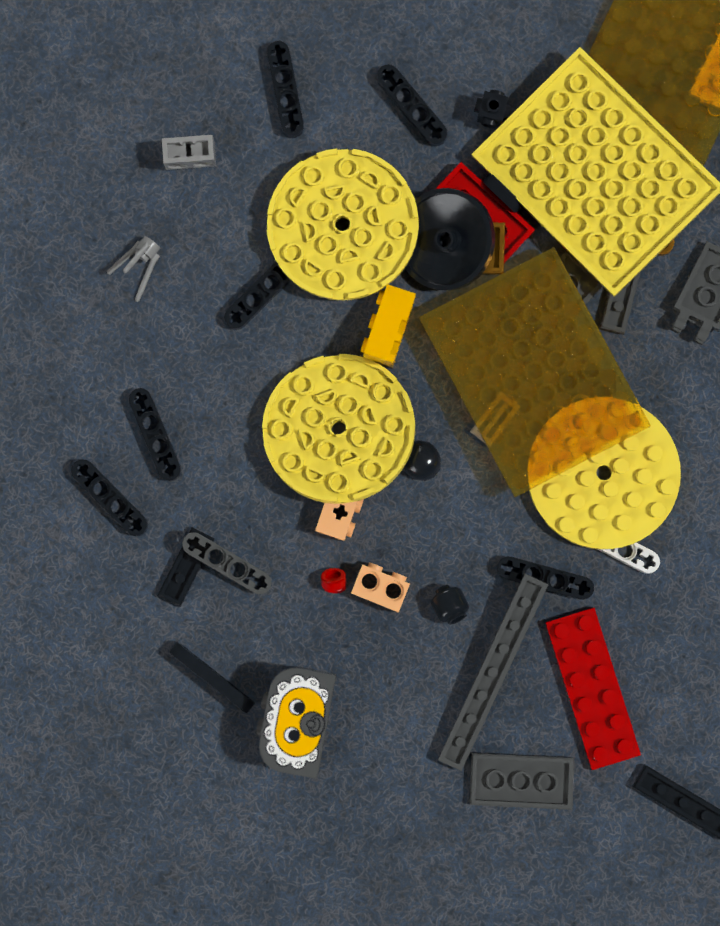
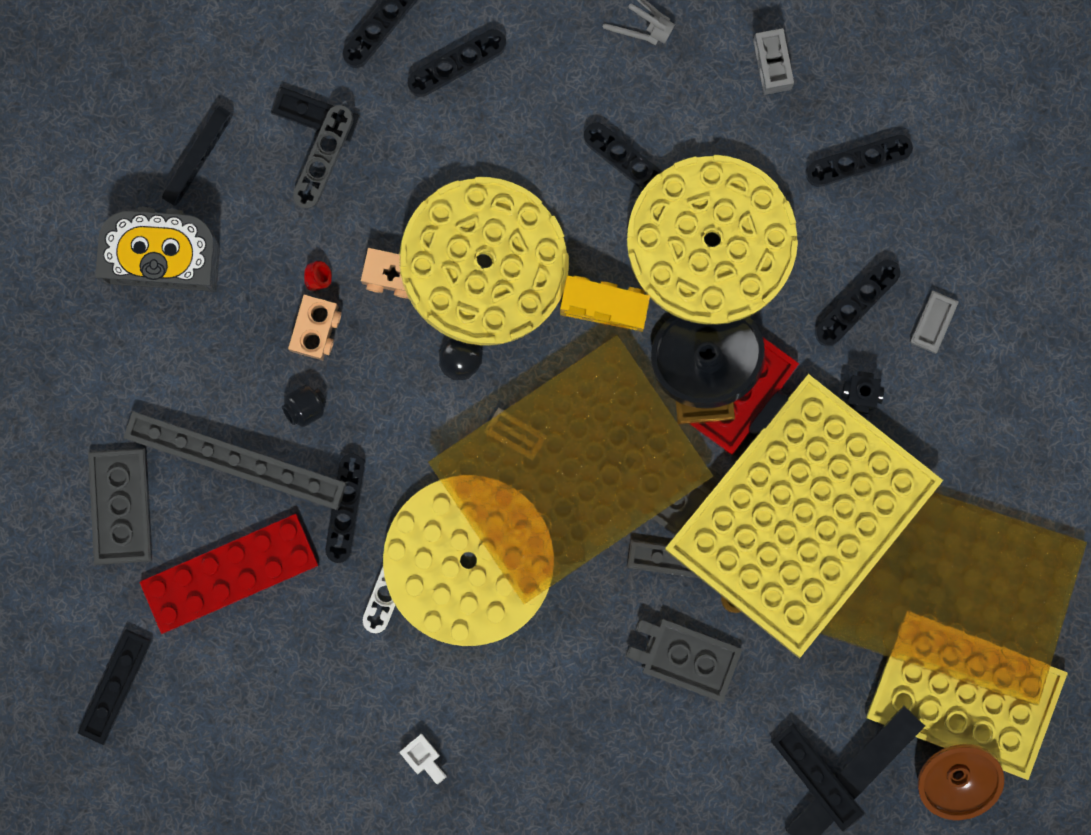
camera: 80 degrees right, 0 degrees up
(436, 41) = (934, 322): none -> light grey tile

